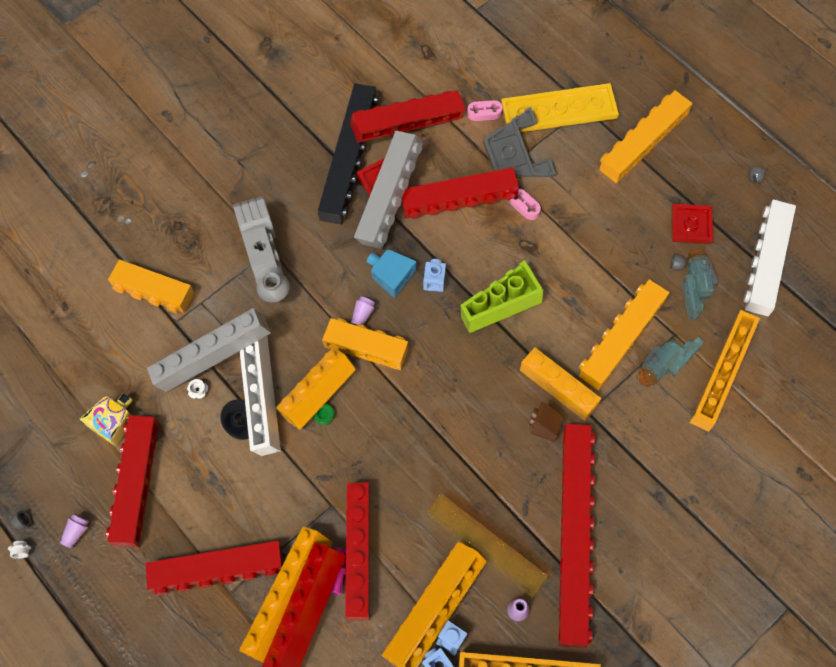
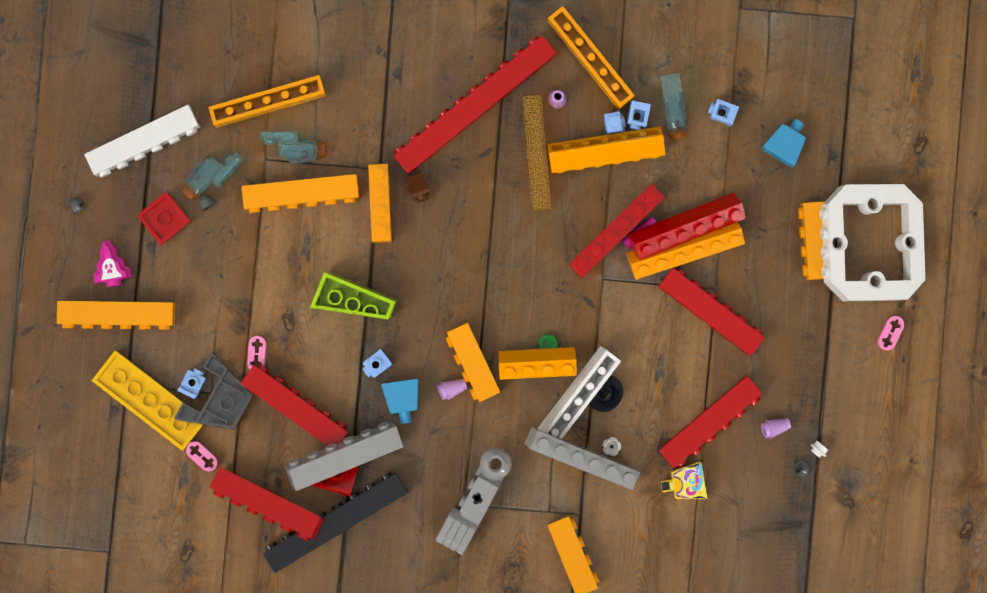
camera: 135 degrees left, 20 degrees up
(543, 143) = (192, 391): none -> light blue brick
(686, 160) = (111, 267): none -> dark pink rock

